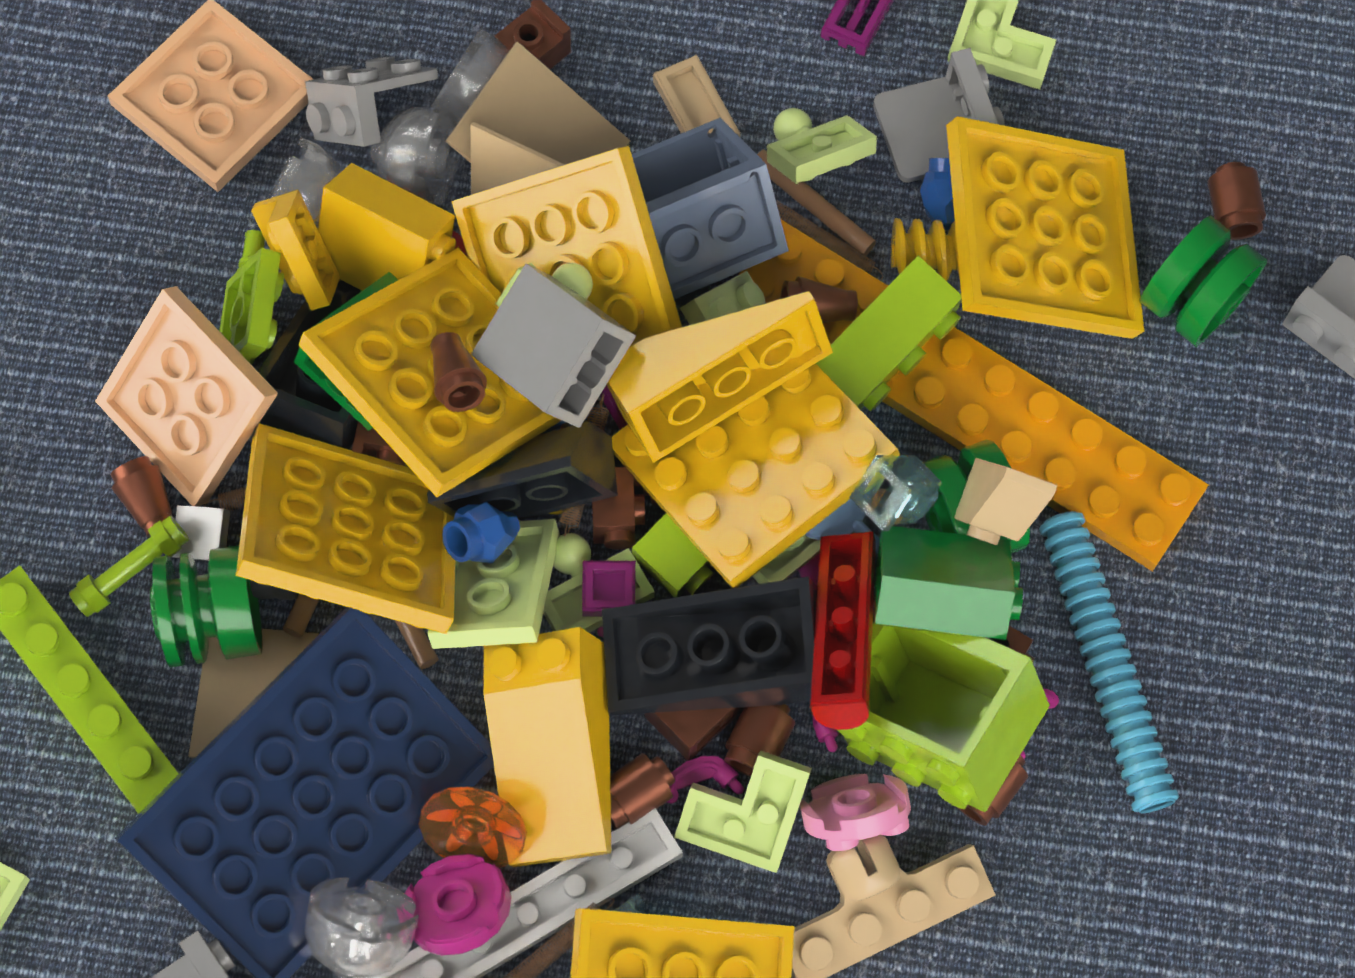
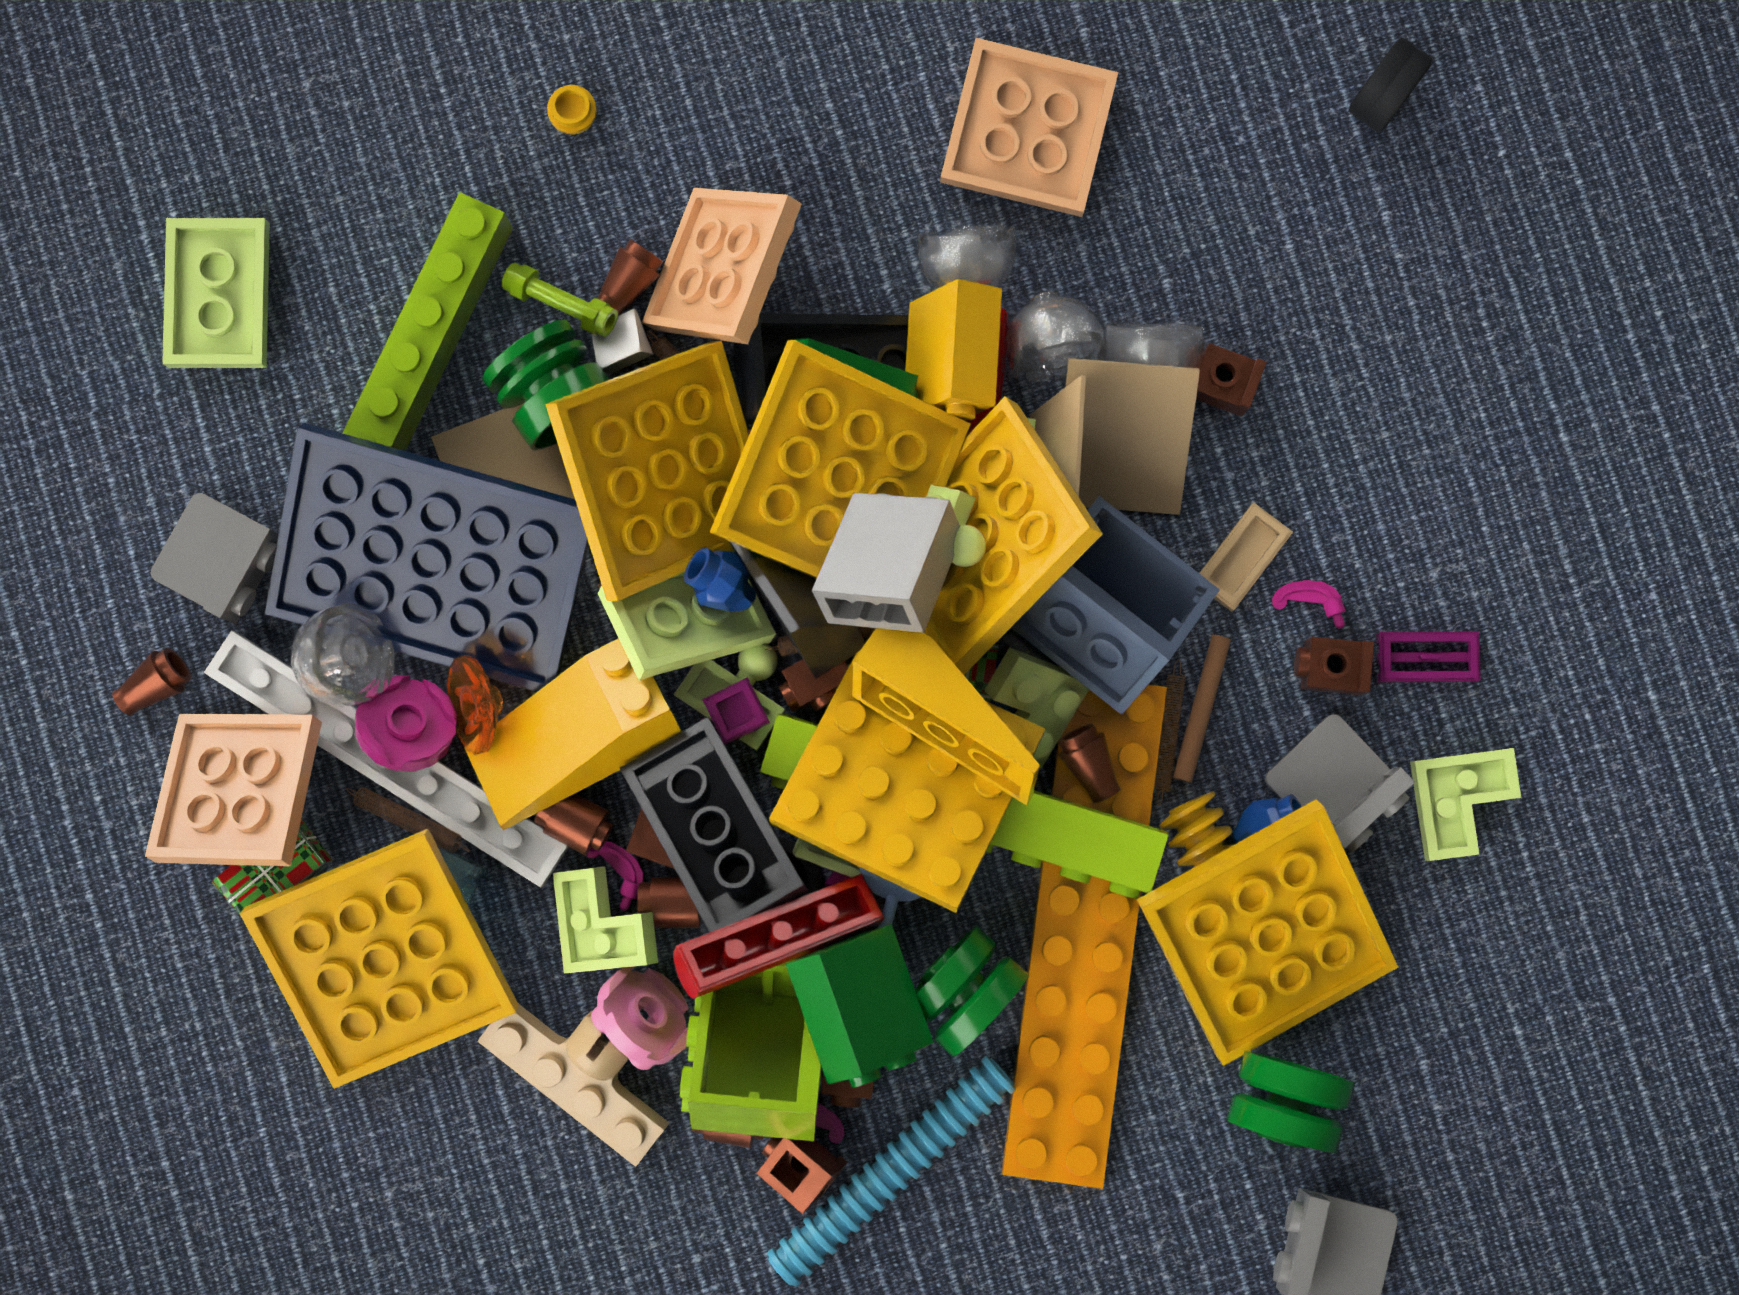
camera: 65 degrees right, 15 degrees up
(251, 298) = (840, 268): lime plate -> none
(304, 255) = (900, 287): yellow bracket -> none
(344, 101) = (1084, 245): light grey bracket -> none
(457, 377) = (828, 489): copper cone -> none
(758, 67) = (1312, 592): none -> dark pink piece
(811, 151) = (1250, 688): yellowish green plate -> none
(833, 74) = (1356, 665): none -> copper brick
(907, 498) = (923, 923): clear light blue brick -> none
(1001, 501) = (953, 1022): tan slope -> none
(1085, 743) = (794, 1182): none -> copper brick
(1237, 199) = (1399, 1094): copper brick -> none

